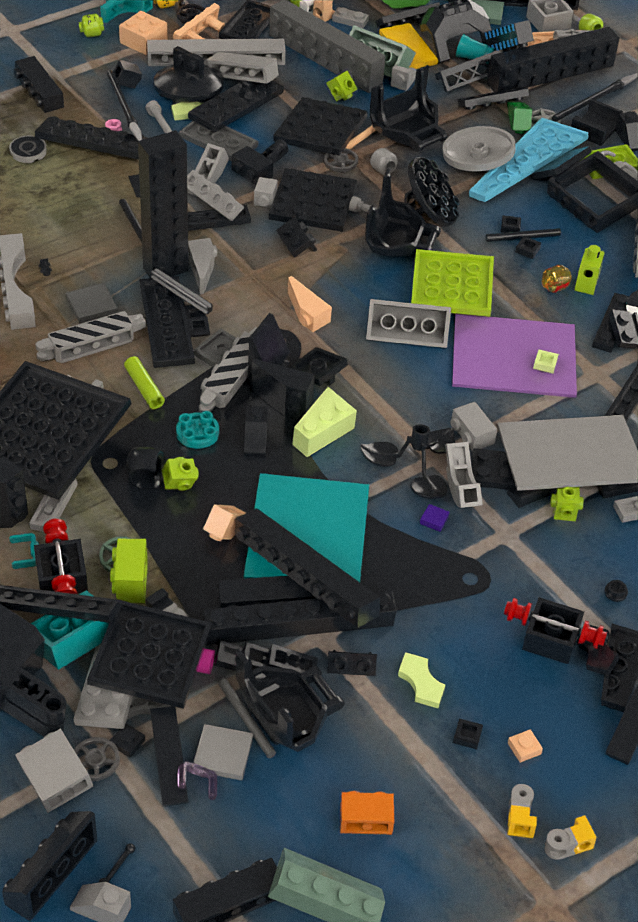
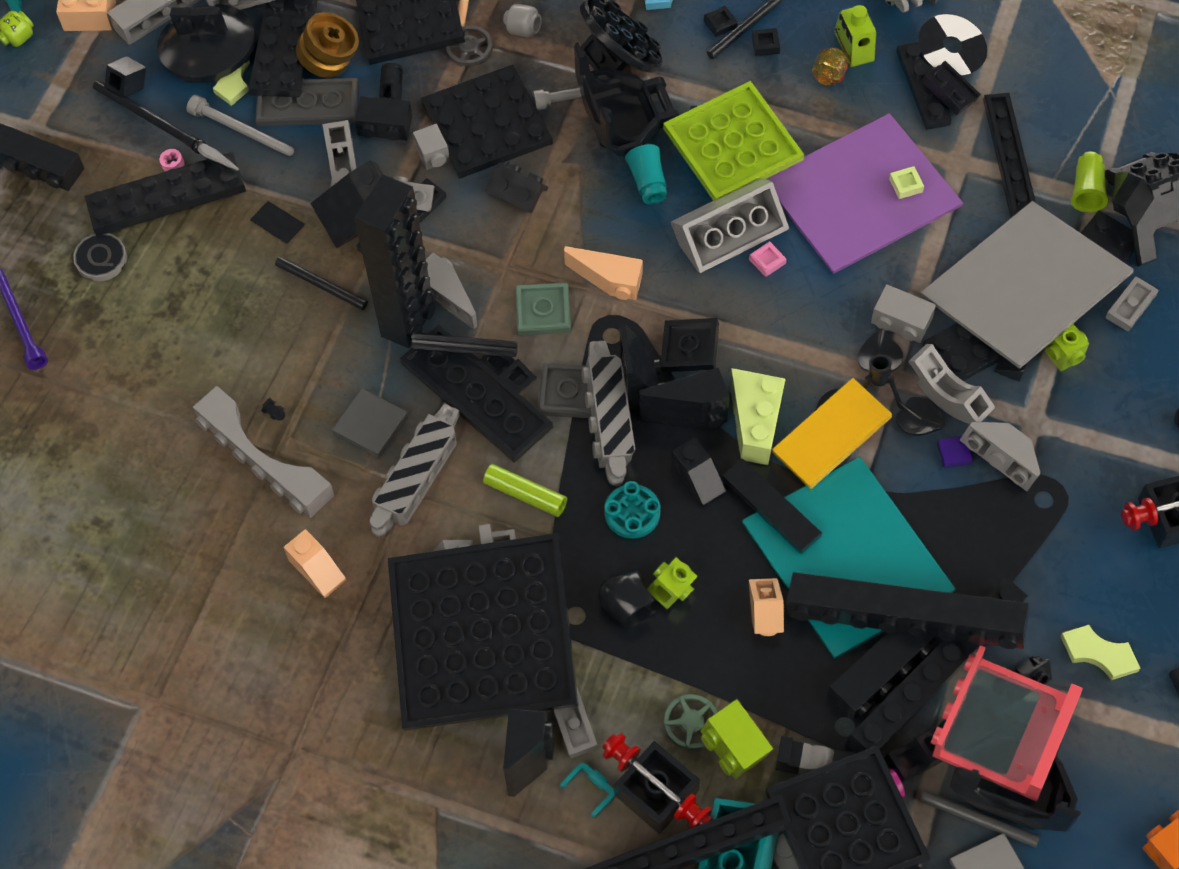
camera: 30 degrees left, 15 degrees up
(202, 188) = (343, 201): none -> black slope
(250, 305) = (543, 309): none -> sand green tile
(252, 112) = (327, 45): none -> pearl gold wheel
(284, 475) = (771, 506): none -> black tile
(306, 664) = (1004, 726): none -> clear light blue panel
(360, 458) = (832, 433): none -> yellow tile
(383, 269) = (648, 174): none -> teal plant
(416, 355) = (767, 259): none -> bright pink tile
(465, 529) = (1005, 450): none -> light grey slope

